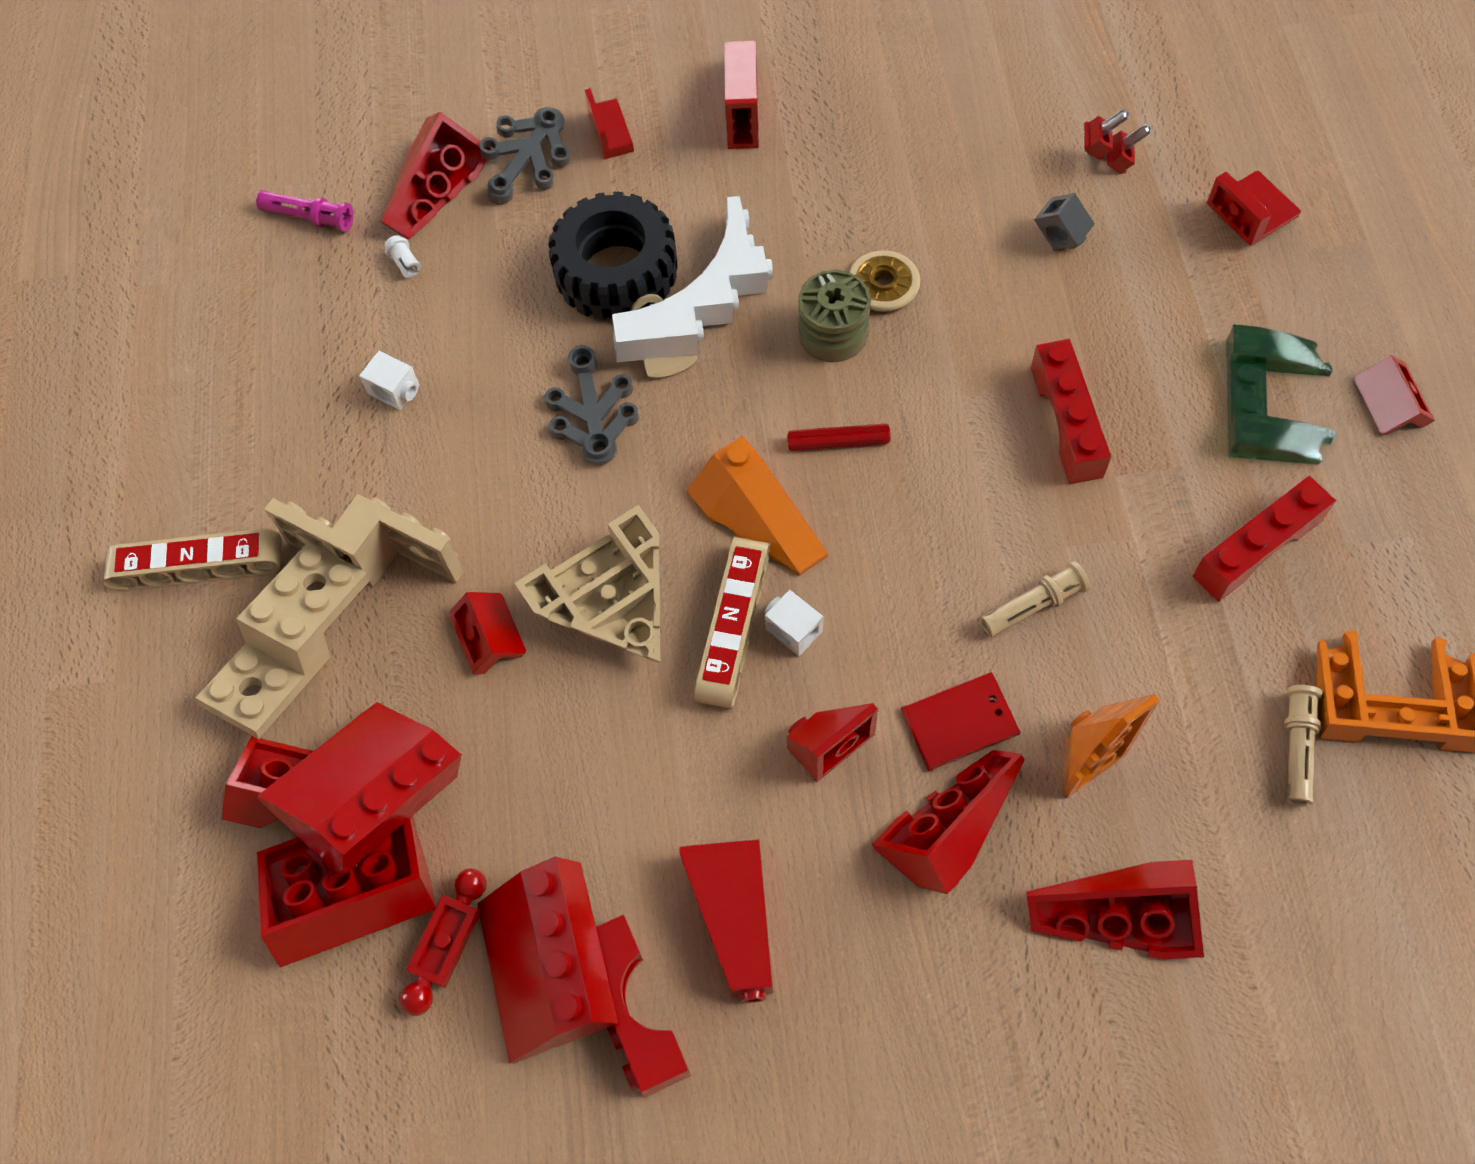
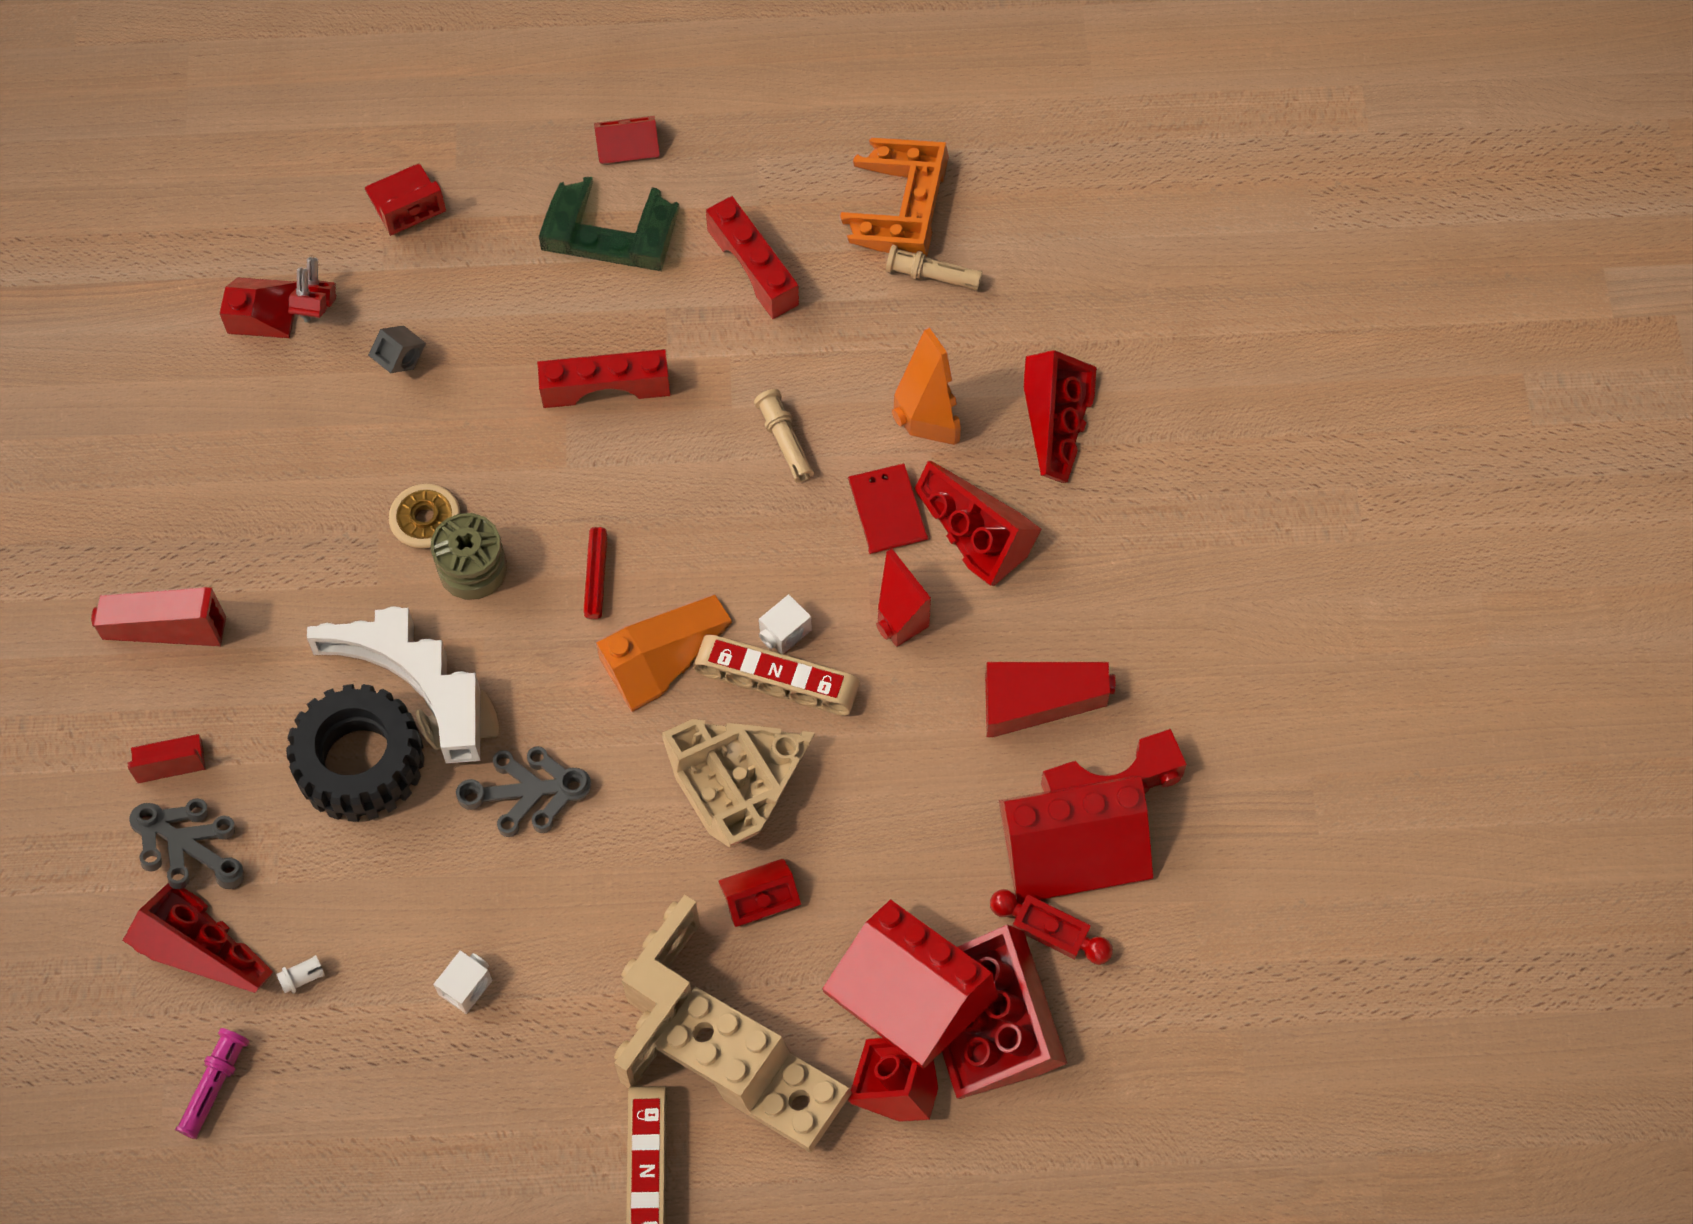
camera: 90 degrees left, 0 degrees up
(1090, 95) = (257, 307): none -> red slope

